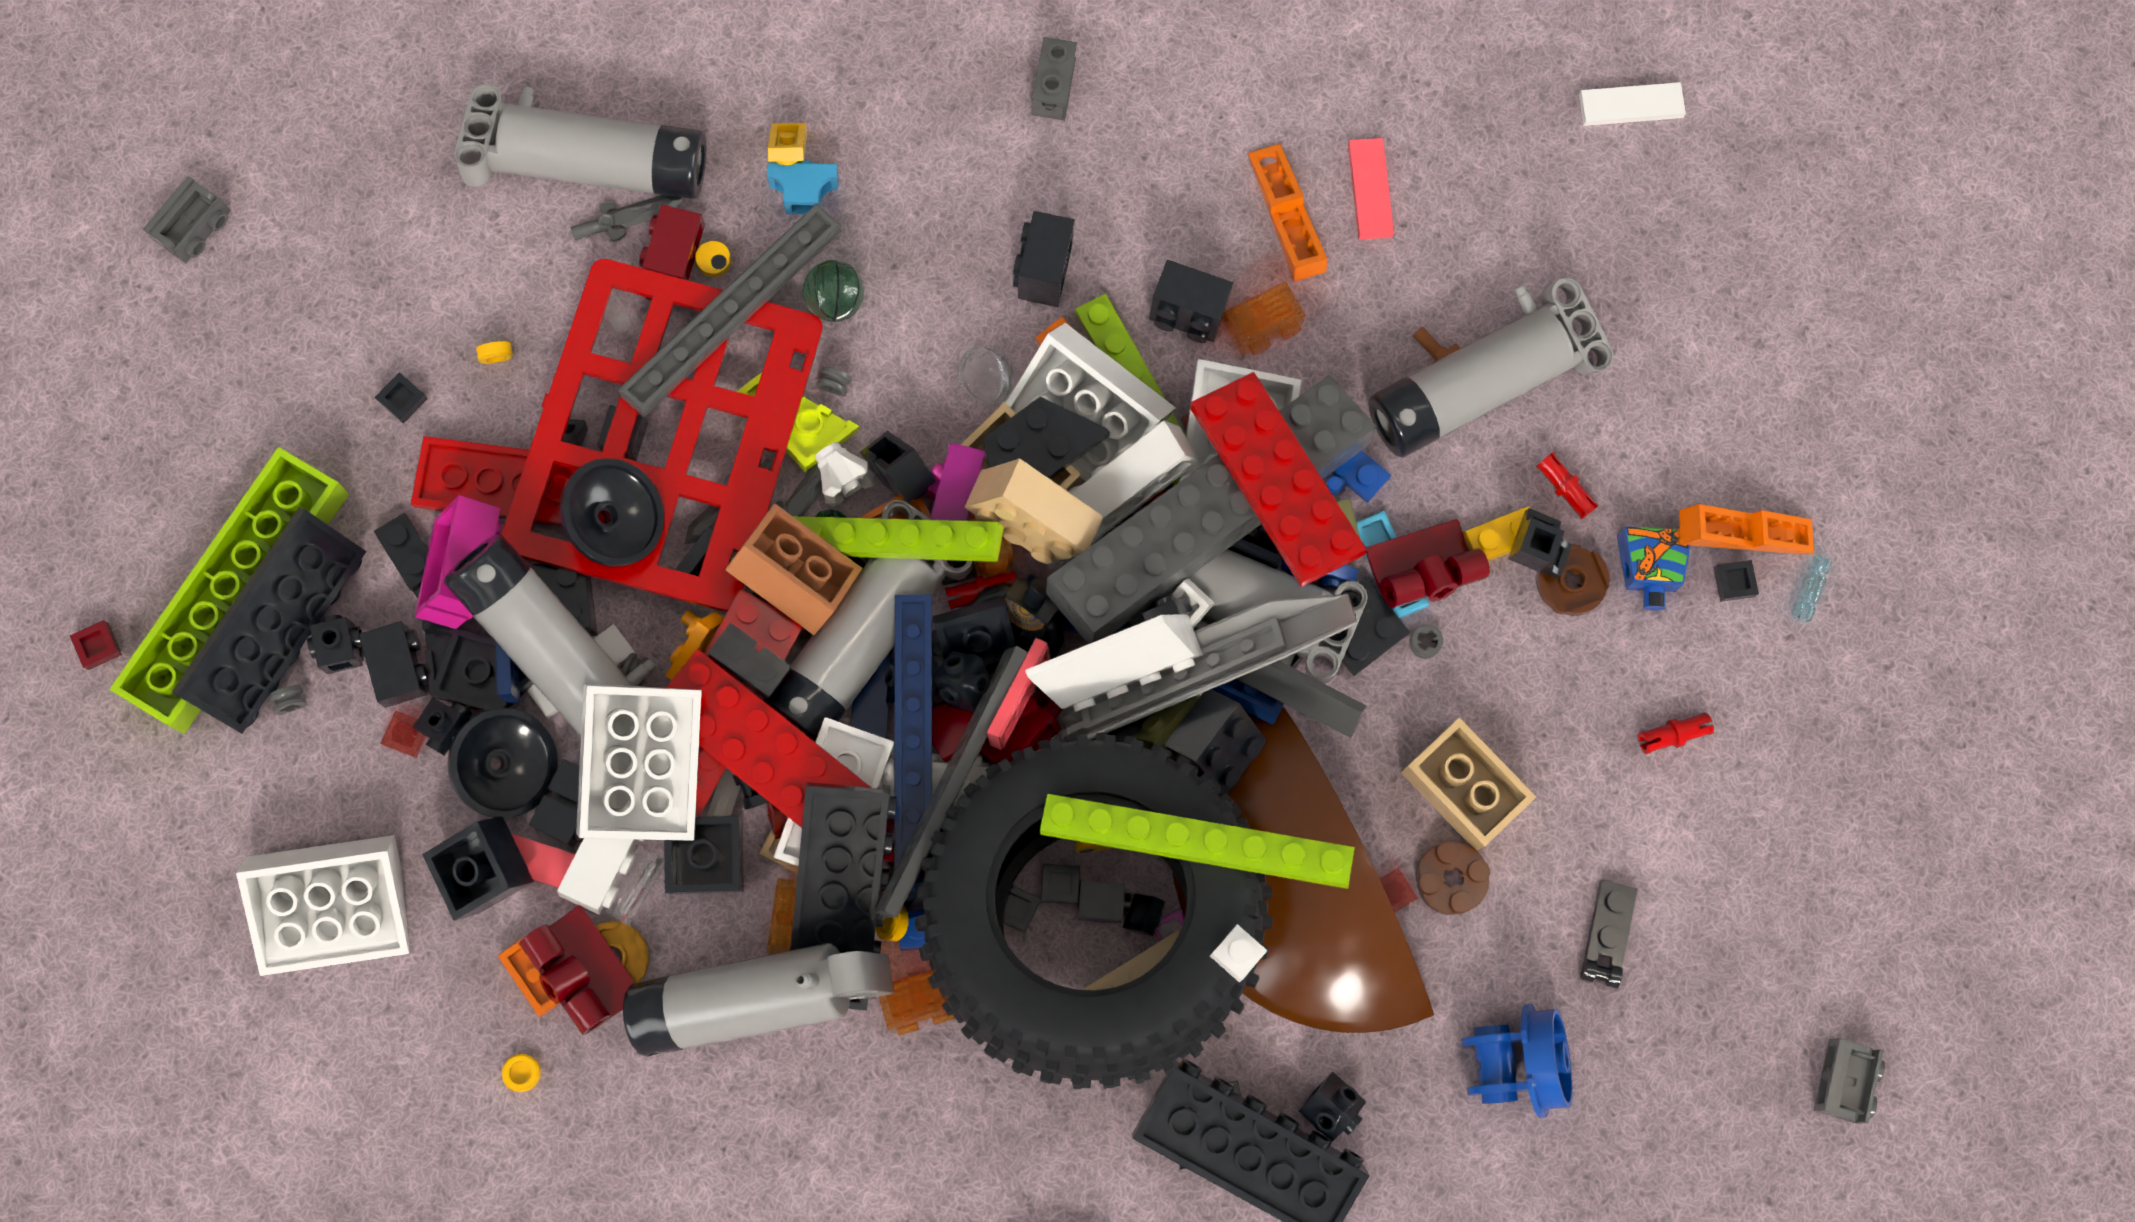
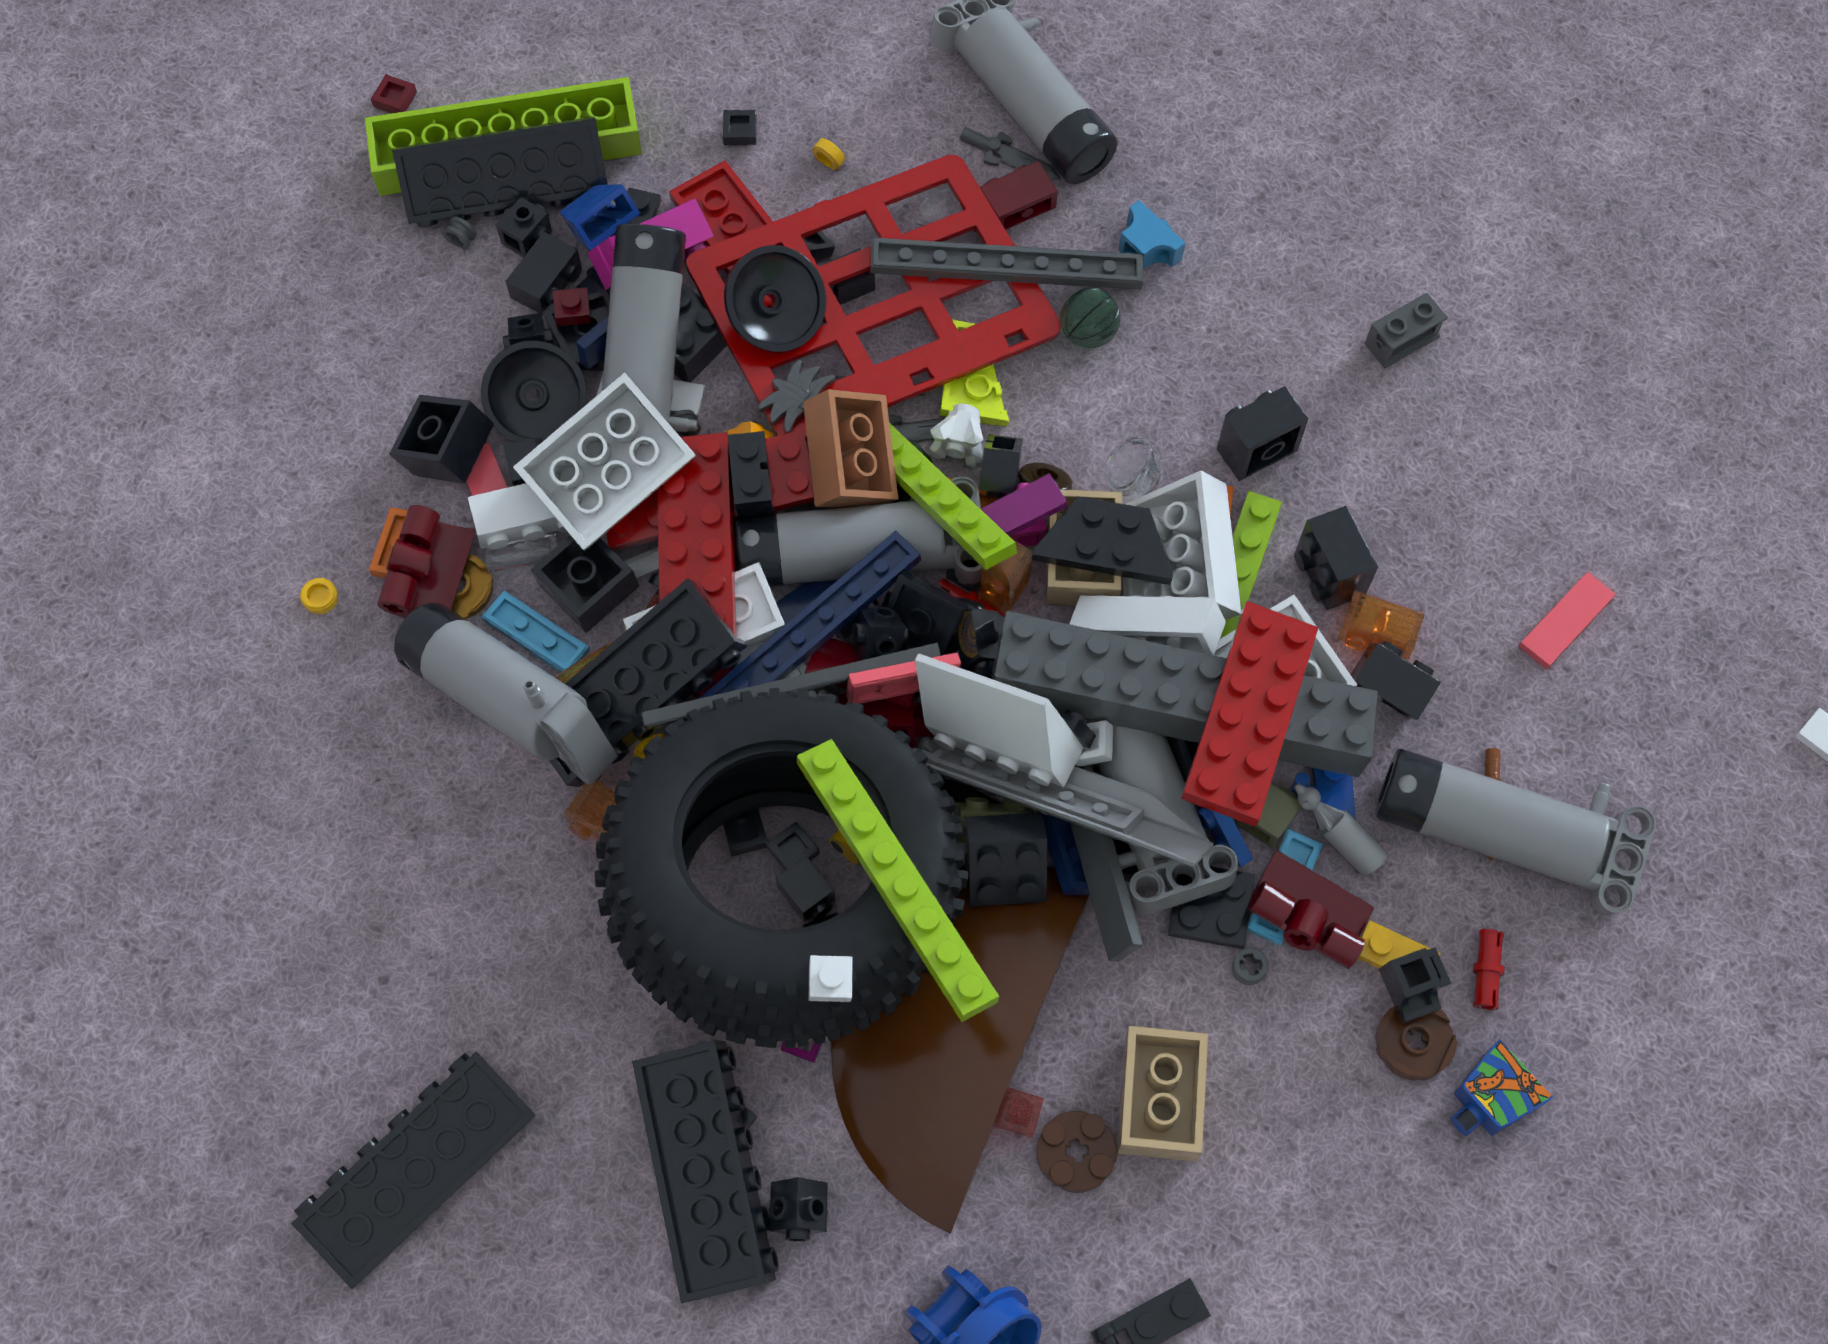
camera: 55 degrees right, 10 degrees down
(325, 905) = (332, 372): white slope -> none
(386, 578) = (595, 218): none -> blue torso
(401, 735) = (497, 322): clear red plate -> none
(449, 668) = (571, 307): none -> dark red plate
(702, 567) = (791, 393): none -> dark grey piece
(709, 930) = (534, 632): none -> medium azure tile
(713, 259) = (1036, 231): yellow tile -> none
(787, 143) = (1167, 201): yellow plate -> none
(834, 381) = (1025, 377): dark grey bush -> none
(934, 434) = (1035, 471): none -> dark brown piece
(1033, 511) = (1052, 566): tan brick -> none
(1288, 214) = (1482, 578): orange slope -> none
(1315, 350) = (1398, 682): none -> black piece
(1394, 490) = (1343, 832): none -> light grey wheel
(1675, 733) = (1373, 1235): red pin -> none
(1736, 580) = (1551, 1177): black plate -> none
(1745, 531) = (1594, 1139): orange slope -> none
(1811, 589) = (1610, 1250): clear light blue axle -> none

